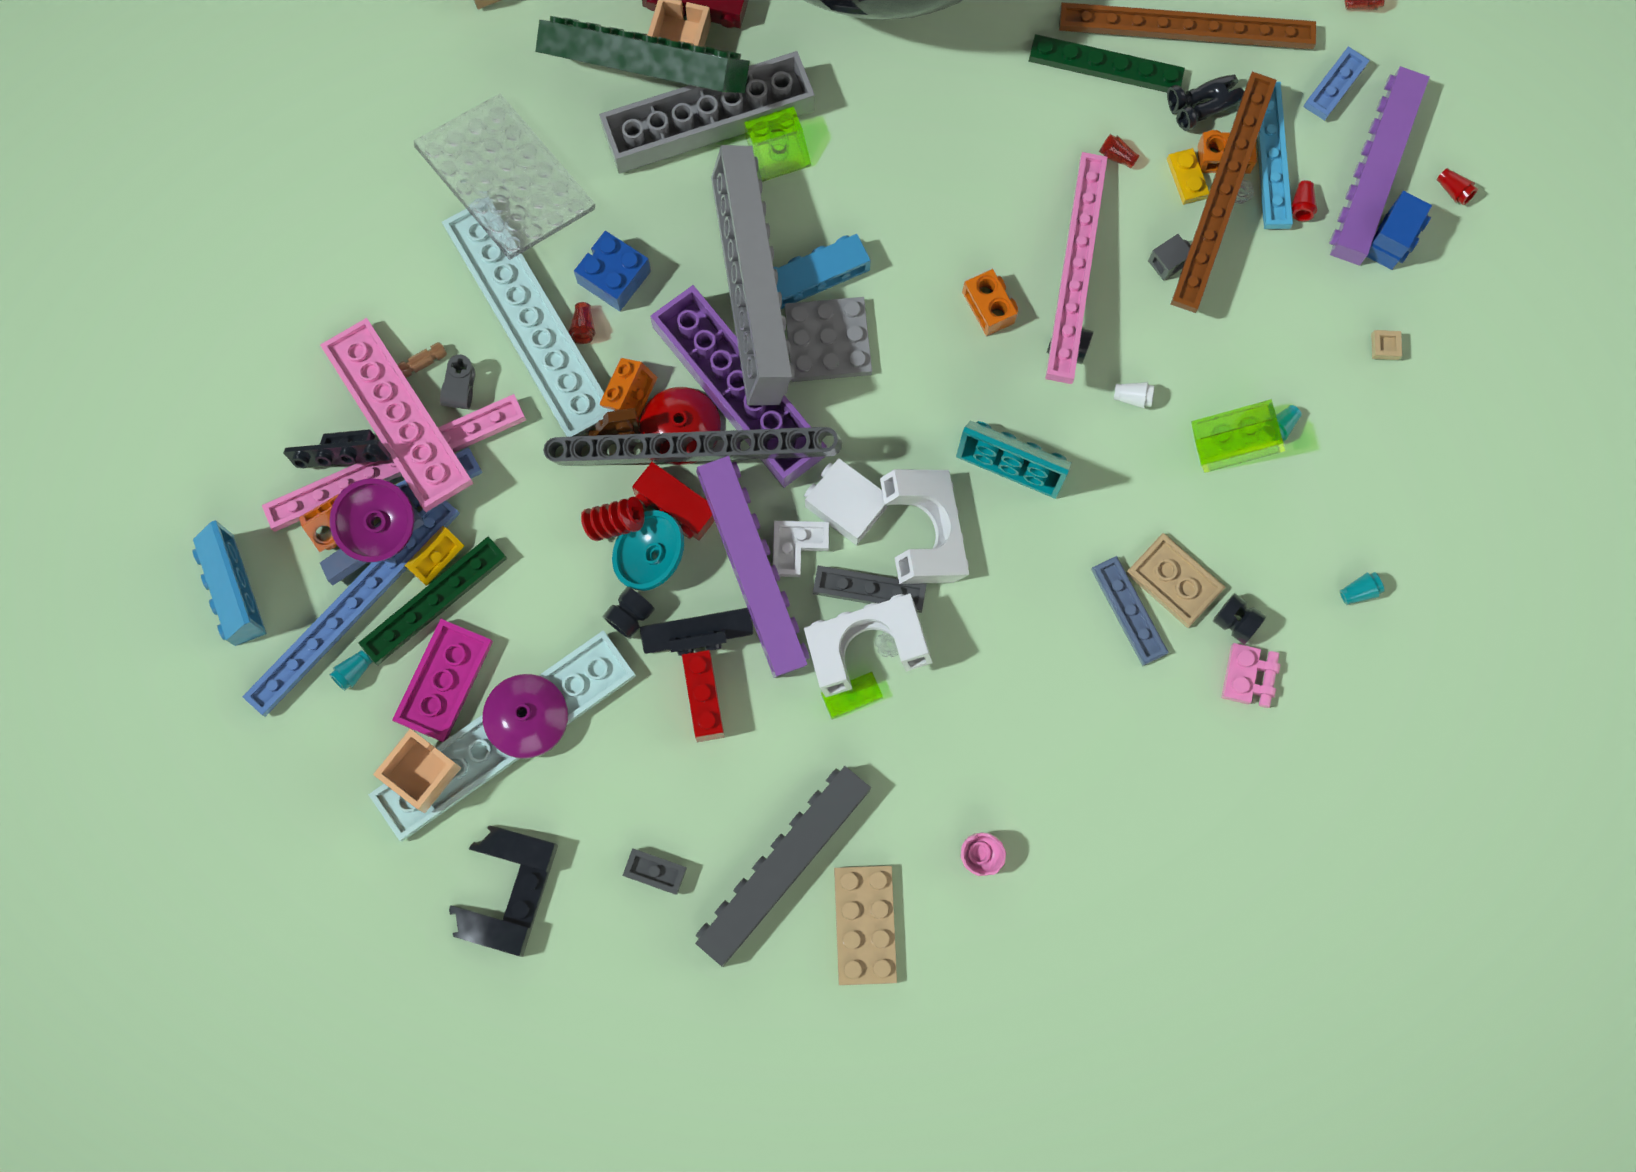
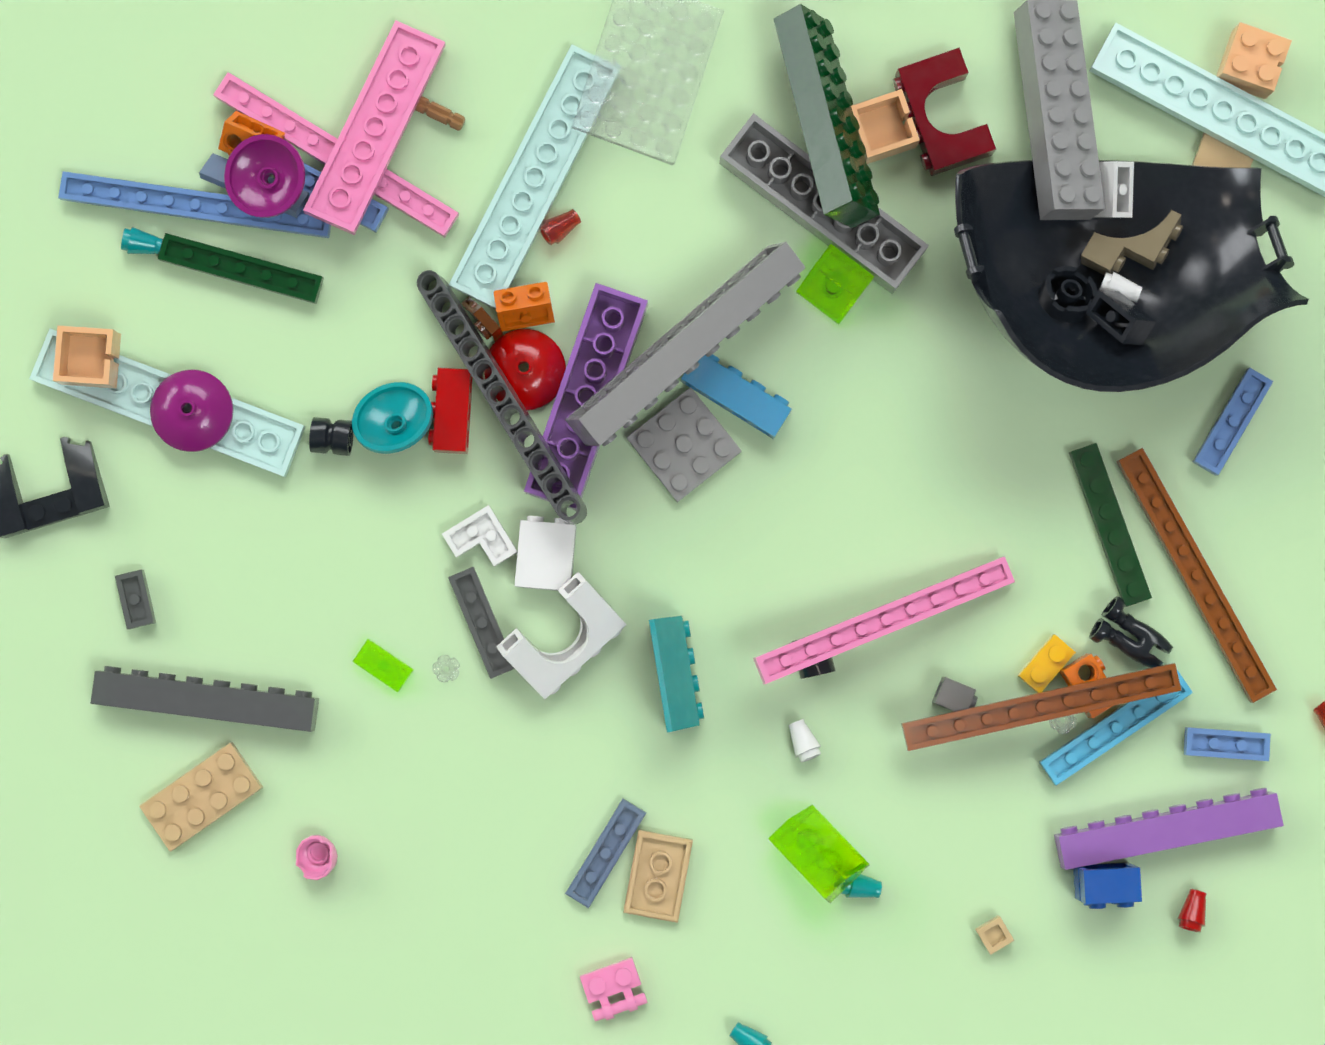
camera: 60 degrees right, 10 degrees up
(228, 585) = (144, 94): dark azure slope -> none
(339, 449) = (317, 104): black bracket -> none
(434, 555) = (277, 243): yellow plate -> none
(442, 681) = (179, 322): dark pink plate -> none
(458, 388) = (434, 161): dark grey piece -> none
(612, 270) = (622, 221): blue piece -> none
(613, 519) = (400, 370): red piece -> none
(696, 632) = (351, 504): black bracket -> none
(703, 696) = (301, 544): red brick -> none
(751, 566) = (432, 513): medium lavender brick -> none
(830, 639) = (413, 618): white arch -> none
(984, 304) = (801, 560): orange brick -> none
(1118, 151) = (1028, 588): clear red cone -> none
(1248, 623) = (650, 960): black wheel -> none
(1304, 202) = (1087, 782): red cone -> none

